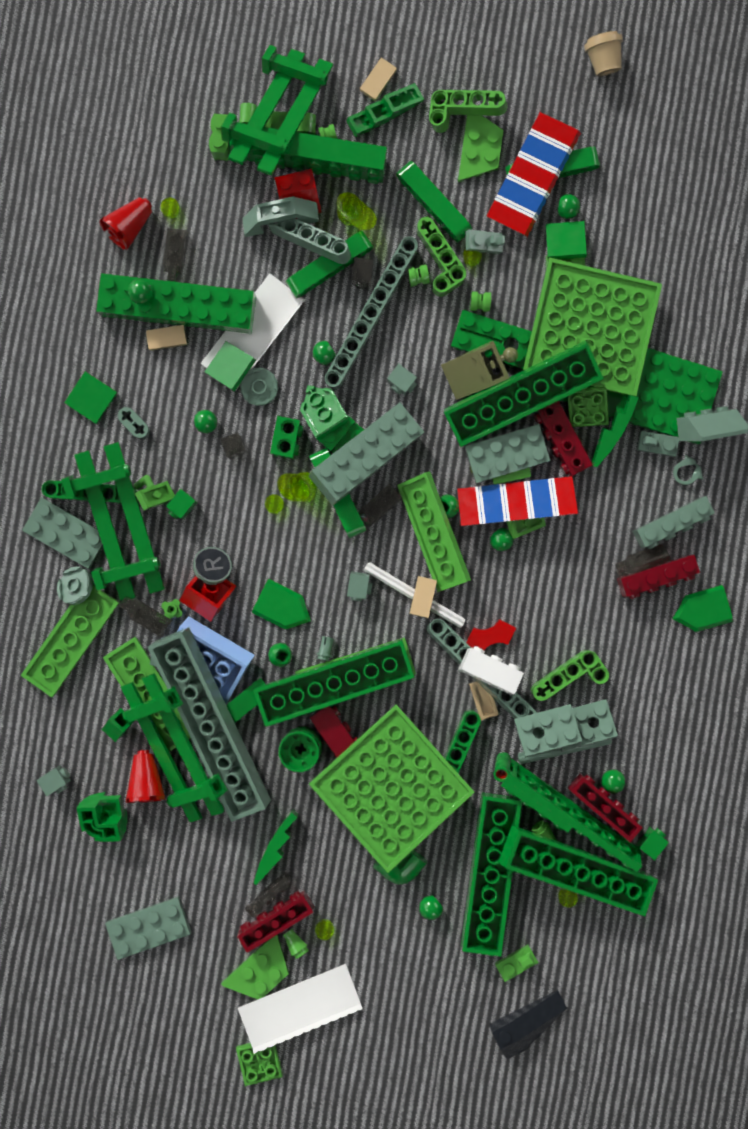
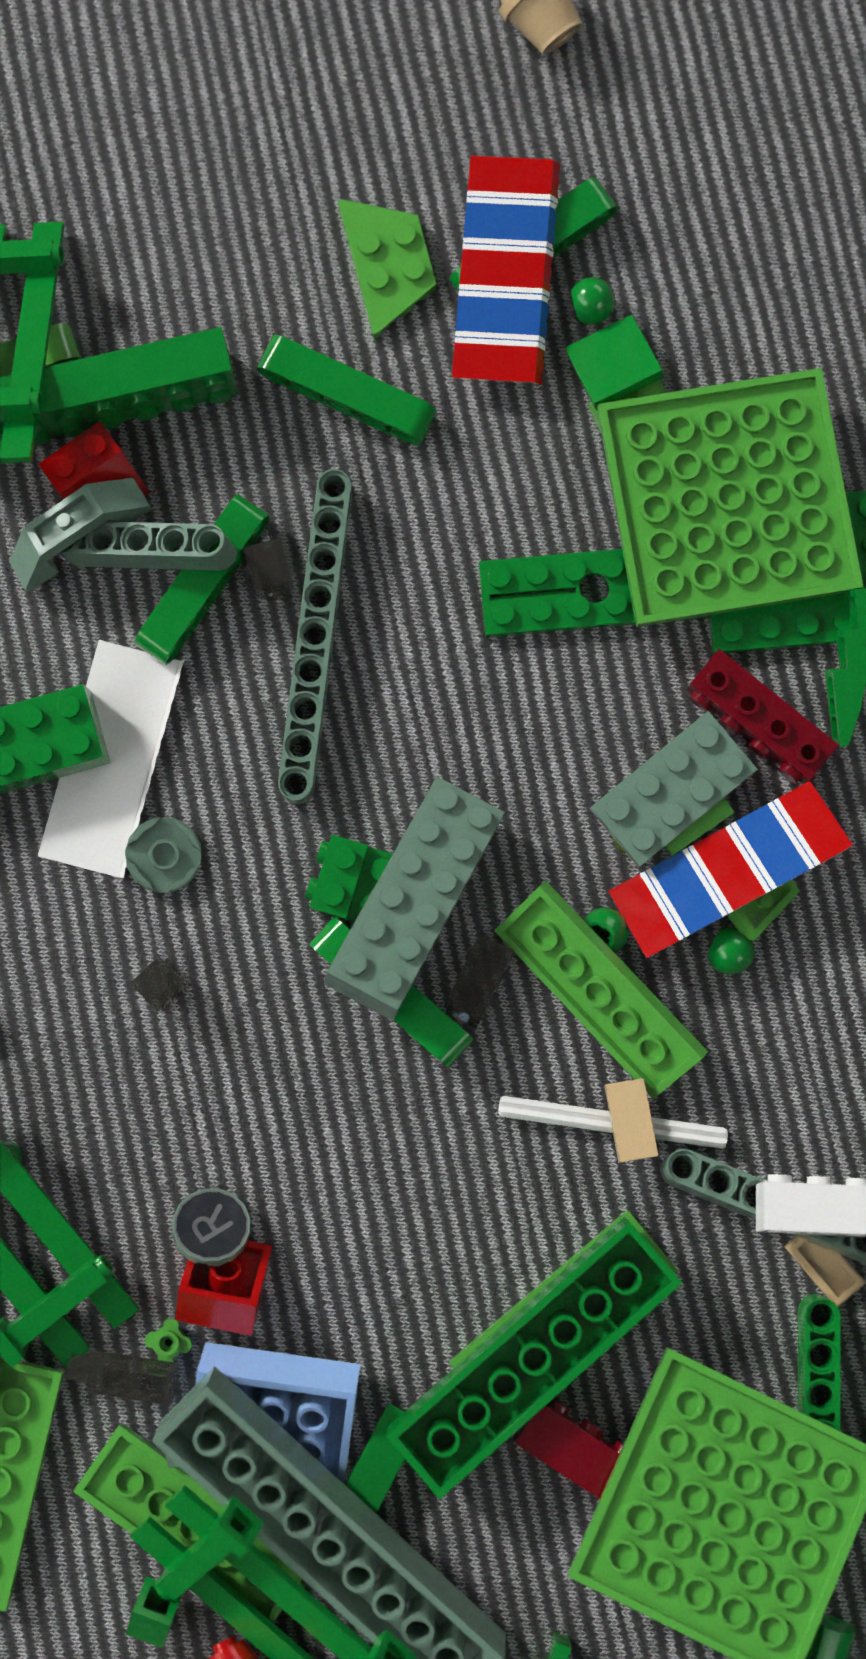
camera: 20 degrees left, 5 degrees down
(154, 494) = (47, 1138): bright green plate -> none
(181, 505) = (106, 1135): green brick -> none
(205, 421) = (90, 960): green piece -> none
(230, 366) = (94, 839): tile -> none
(274, 504) = (280, 1060): clear neon green tile -> none
(280, 654) = (408, 1343): green piece -> none
(281, 437) = (243, 931): green brick -> none
(281, 606) = (372, 1248): green tile -> none
(290, 751) = (518, 1533): green wheel -> none
(297, 486) = (310, 1011): clear neon green piece -> none
(322, 411) = (300, 851): tile -> none
(323, 353) = (258, 744): green piece -> none
(325, 648) = (488, 1294): sand green pin -> none
(328, 132) = (103, 344): bright green wheel -> none
(354, 212) = (210, 467): clear neon green piece -> none
(359, 586) = (502, 1149): sand green brick -> none
(378, 79) = (155, 217): tan tile -> none
(385, 110) = (191, 265): green slope -> none
(402, 380) = (423, 734): sand green brick -> none
(413, 275) = (365, 537): bright green wheel -> none
(437, 254) = (391, 481): bright green beam -> none
(468, 107) = (336, 202): bright green beam -> none
(472, 258) = (455, 458): clear neon green tile -> none
(474, 370) = (547, 661): olive slope -> none
(480, 301) = (506, 533): bright green wheel -> none
(484, 241) = (467, 423): sand green plate -> none
(499, 633) = (799, 1128): red tile -> none
(523, 393) = (658, 667): green brick -> none
(589, 407) = (784, 641): bright green tile -> none

